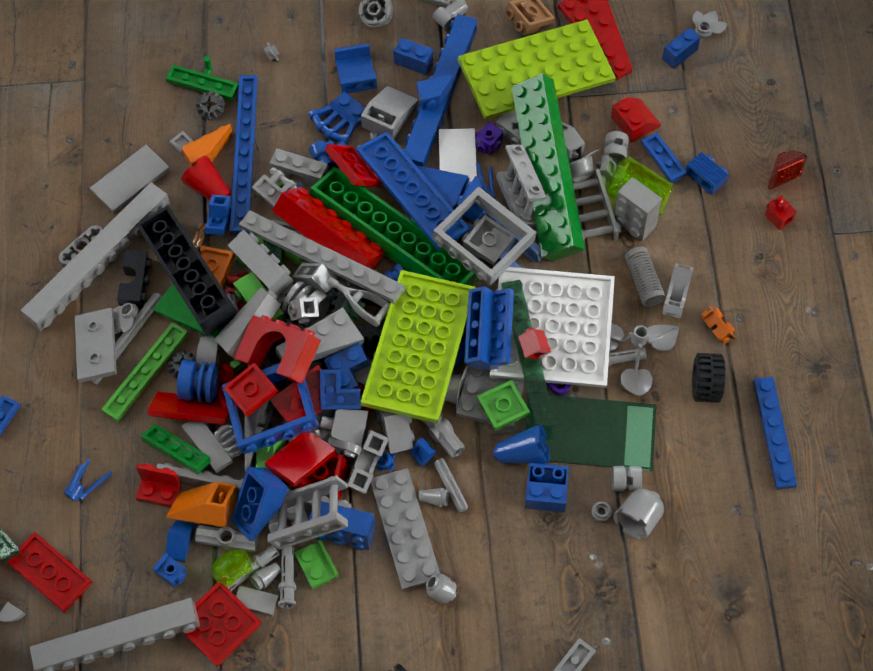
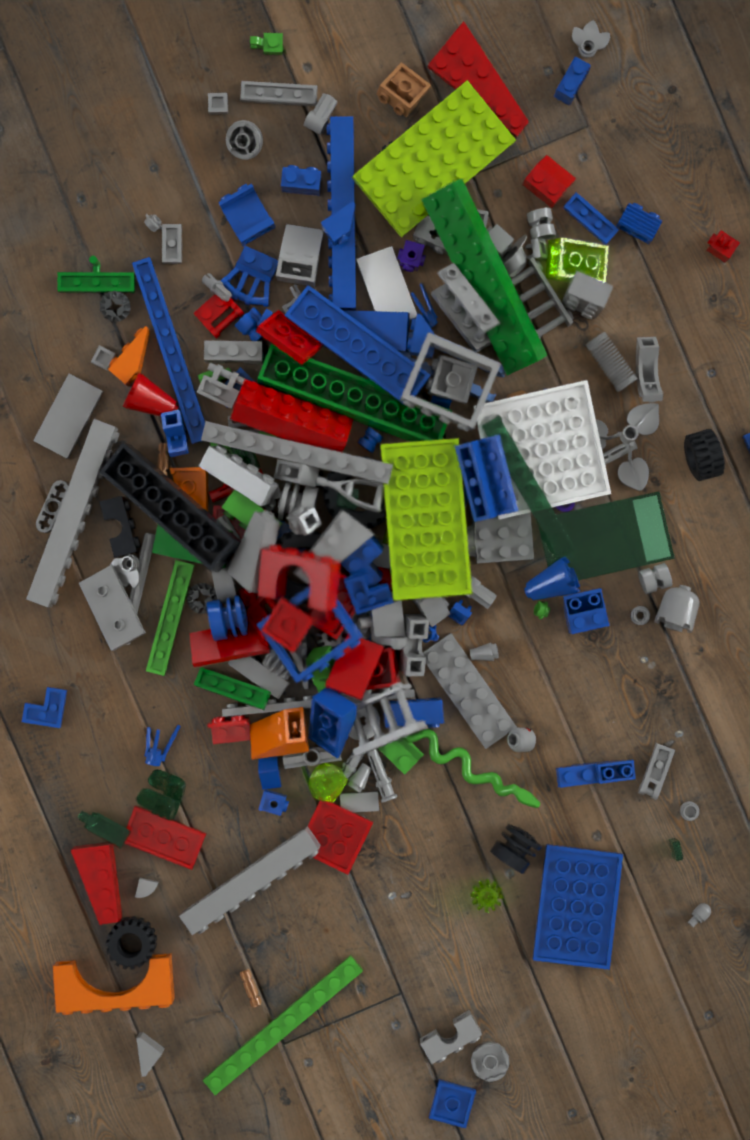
camera: 20 degrees left, 25 degrees up
(72, 533) = (163, 804): none -> clear green piece
(281, 72) = (171, 243): none -> light grey plate
(298, 132) = (213, 309): none -> red plate
(305, 113) = (216, 287): none -> light grey axle
(421, 637) = (521, 794): none -> bright green animal
(451, 485) = (495, 635): light grey axle -> none
(503, 405) = (520, 545): bright green plate -> none
(504, 475) = (541, 609): none -> bright green plate
(505, 648) = (595, 773): none -> blue slope
(534, 343) = (535, 482): brick -> none
(723, 330) = (690, 383): orange hinge -> none
(787, 167) = (715, 191): clear red slope -> none

